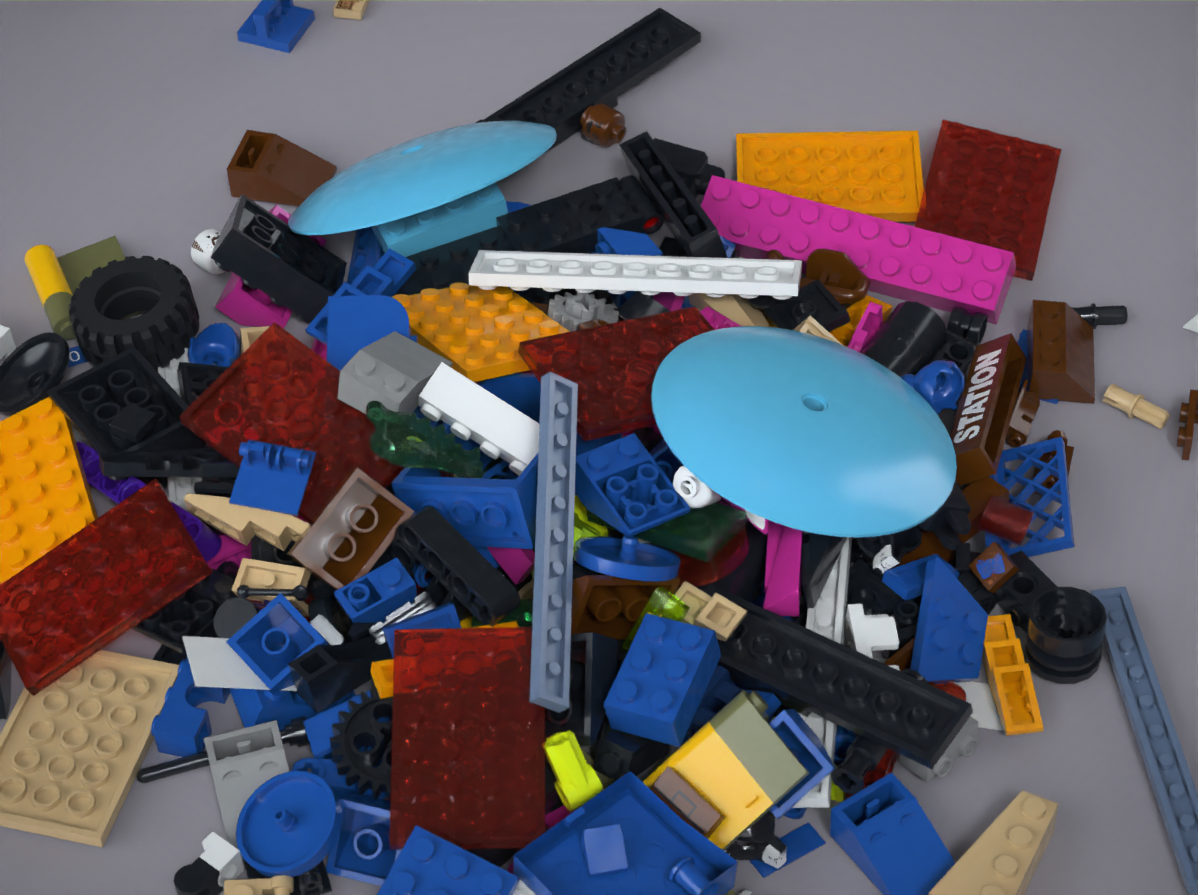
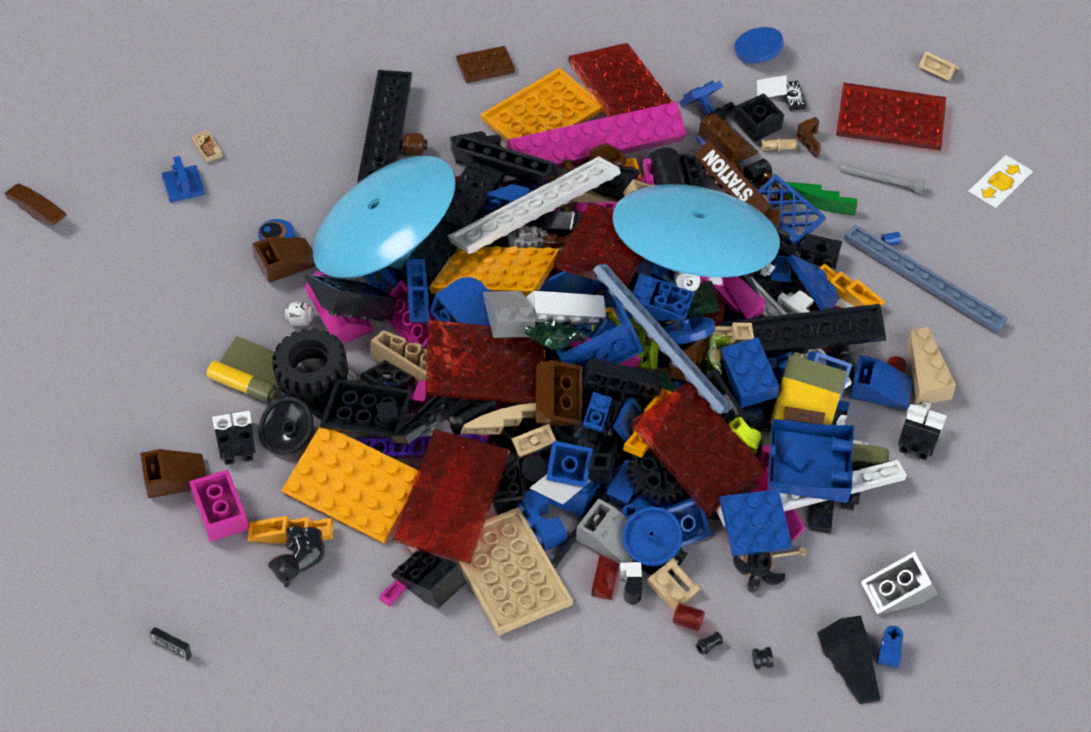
camera: 45 degrees left, 5 degrees up
(179, 840) = (604, 578): none -> clear red slope
(215, 345) = (362, 356): blue piece -> none
(272, 477) = (498, 392): blue hinge -> none
(298, 592) = (557, 436): black hinge -> none
(316, 138) = (276, 228): none -> tile
(825, 77) = (485, 64): none -> reddish brown plate
(938, 384) = (707, 178): blue piece -> none
(959, 834) = (898, 363): none -> clear red tile
(968, 325) = (680, 146): black wheel -> none
(993, 567) = (807, 246): reddish brown tile -> none
(1005, 520) = (794, 222): clear red piece -> none
(1053, 418) = (756, 170): none -> black piece
(1065, 635) = (859, 257): black wheel -> none
(1082, 272) = (701, 94): none -> blue plate
(1108, 513) = (824, 199): none -> green slope
(1140, 349) = (758, 117): none -> black brick
(1165, 644) = (891, 238): none -> blue hinge

